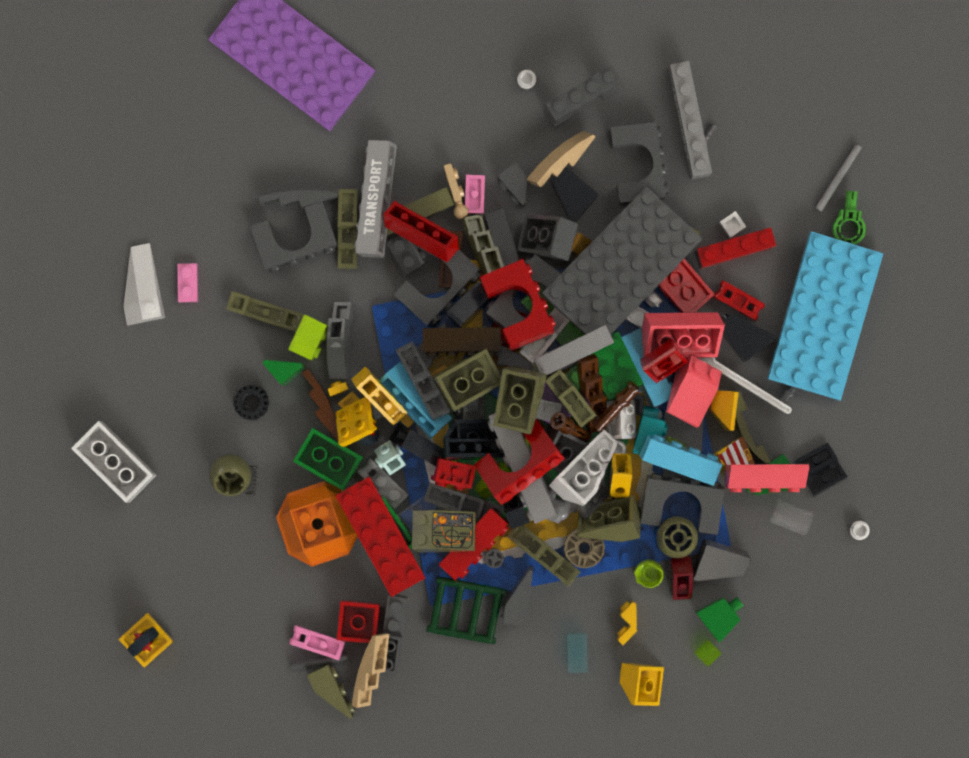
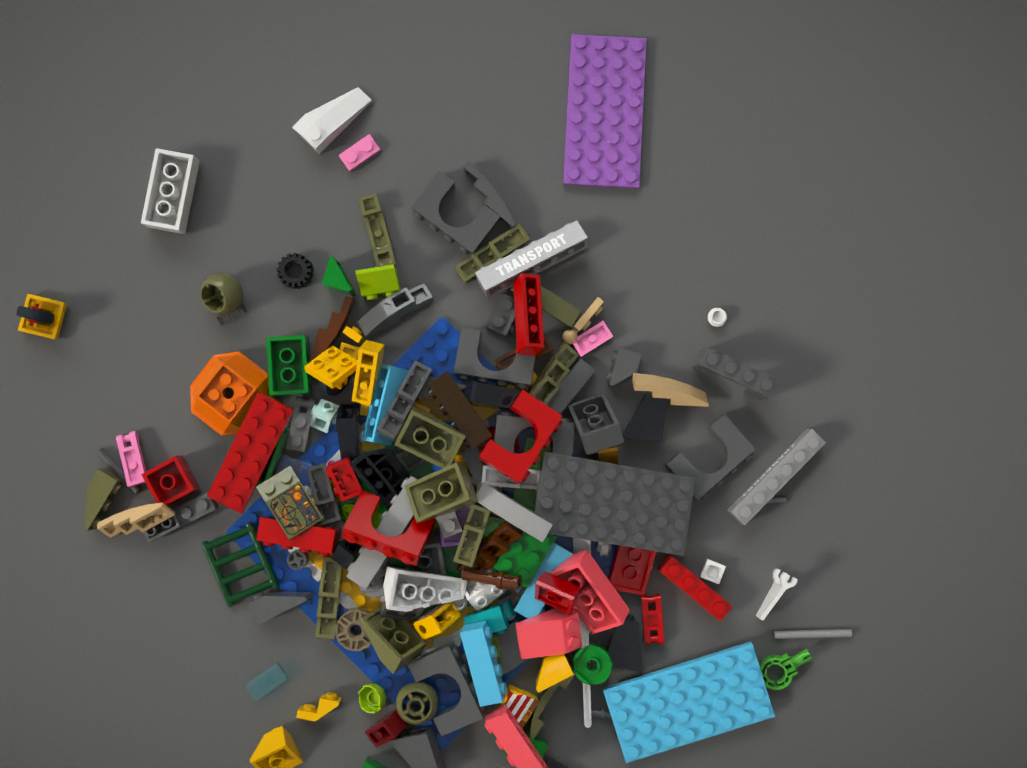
camera: 60 degrees right, 0 degrees up
(571, 428) = (447, 548): reddish brown pin -> none
(746, 362) = (581, 664): none -> green plate
(782, 182) = (775, 592): none -> white flag

